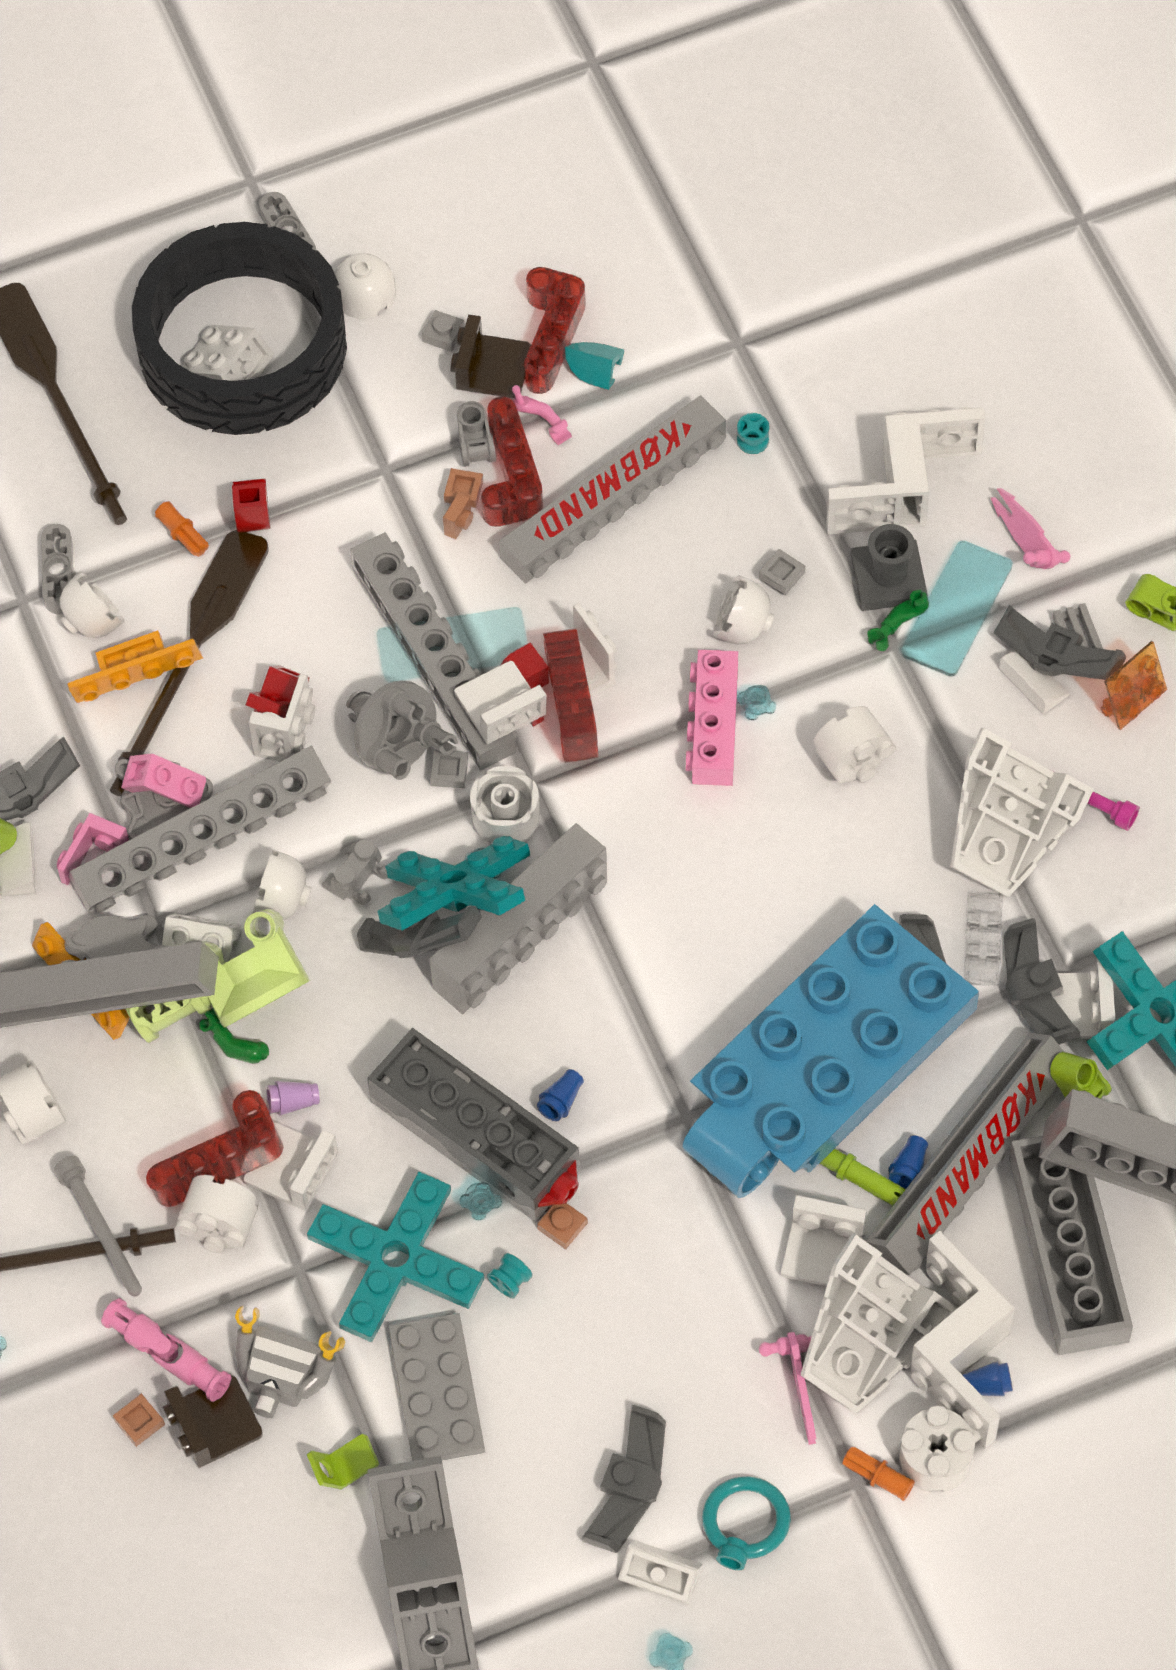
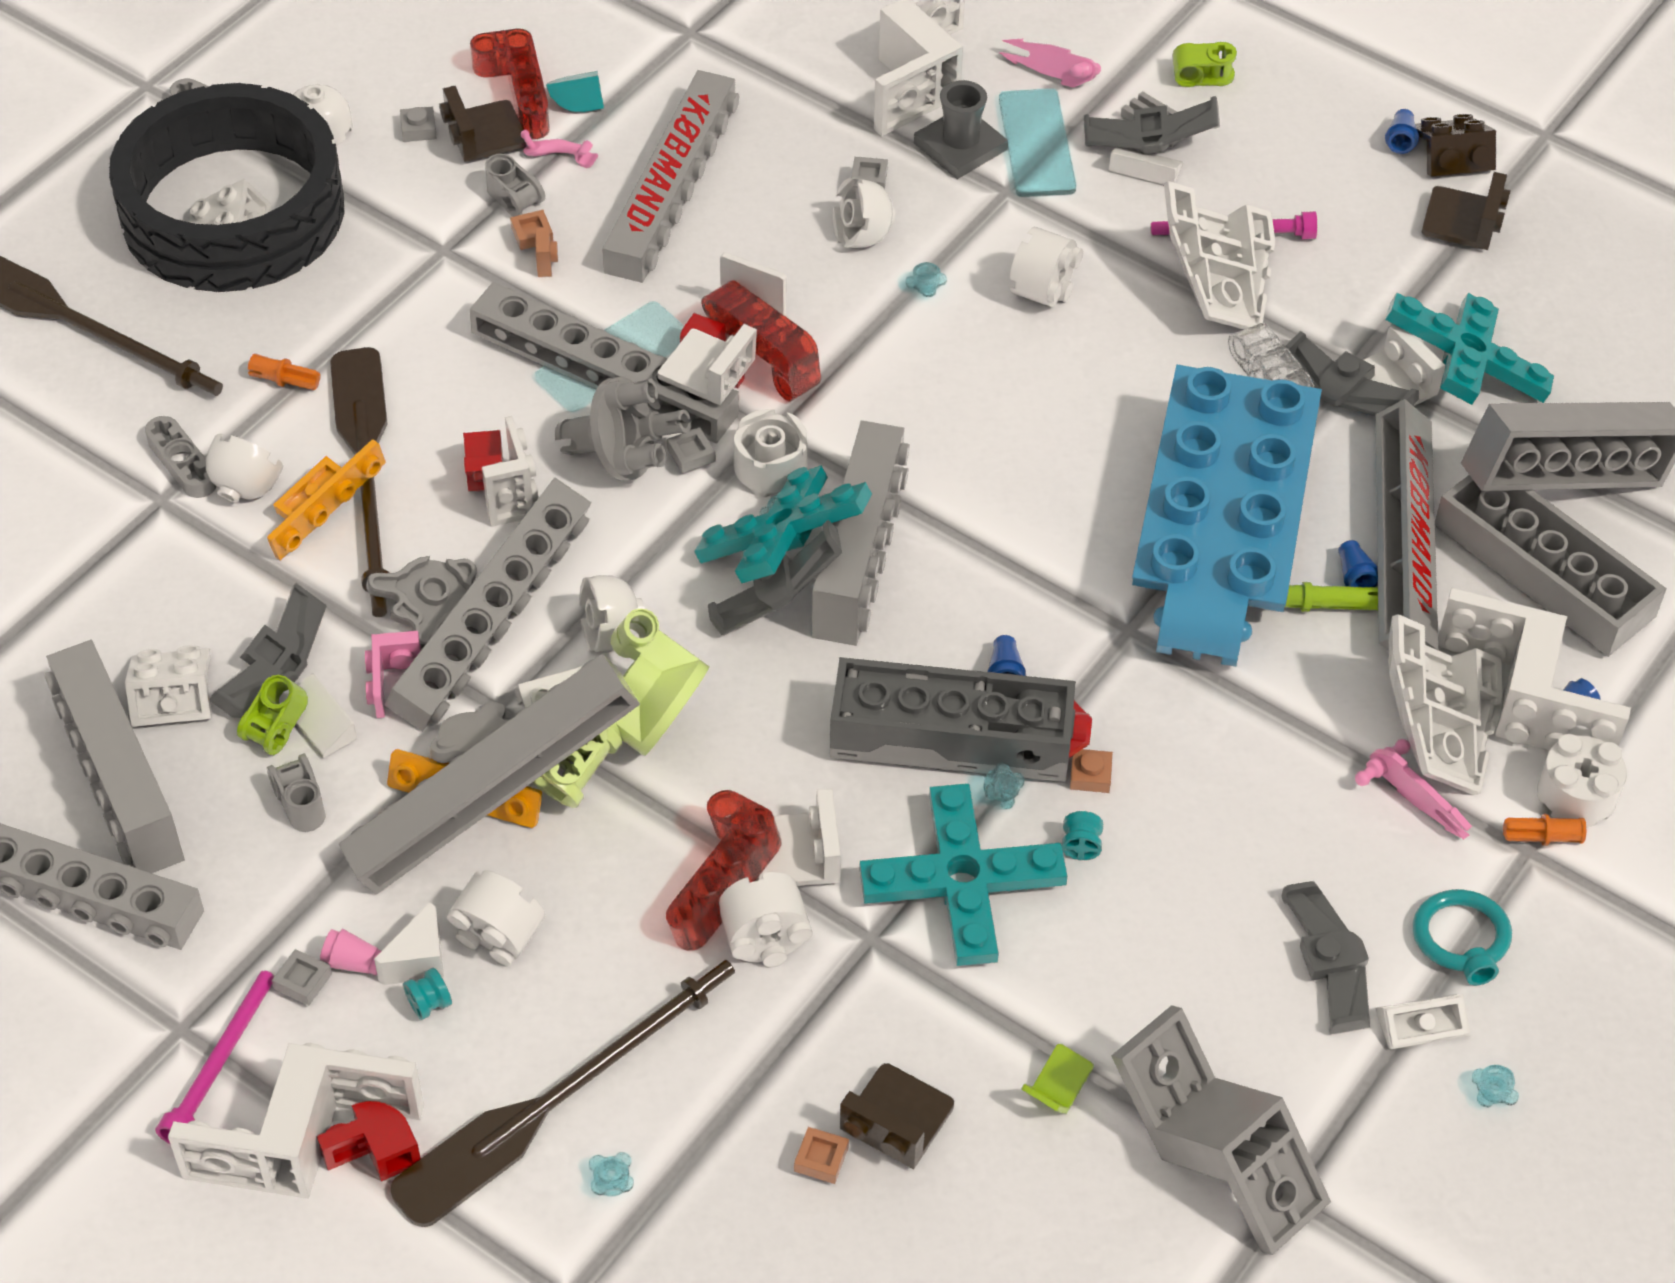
camera: 35 degrees left, 10 degrees down
(72, 1175) = (582, 964): light grey piece -> none
(147, 1337) = (780, 1071): bright pink piece -> none
(165, 778) = (421, 565): bright pink bracket -> none
(233, 1047) = (659, 775): green arm -> none
(251, 505) = (343, 320): red brick -> none
(281, 1365) = (928, 1026): light grey torso -> none
(291, 1096) = (756, 783): lavender cone -> none
(355, 872) = (668, 569): light grey piece -> none
(436, 1388) = (1087, 972): light grey plate -> none
(511, 458) = (582, 204): clear red beam -> none
(714, 717) = (901, 305): bright pink brick -> none
(755, 425) = (760, 86): teal wheel -> none
(818, 1237) = (1338, 663): white bracket -> none
(913, 607) = (996, 163): green arm -> none
(1078, 1074) = (1448, 429): lime piece -> none
(1134, 686) = (1239, 129): clear orange hinge -> none

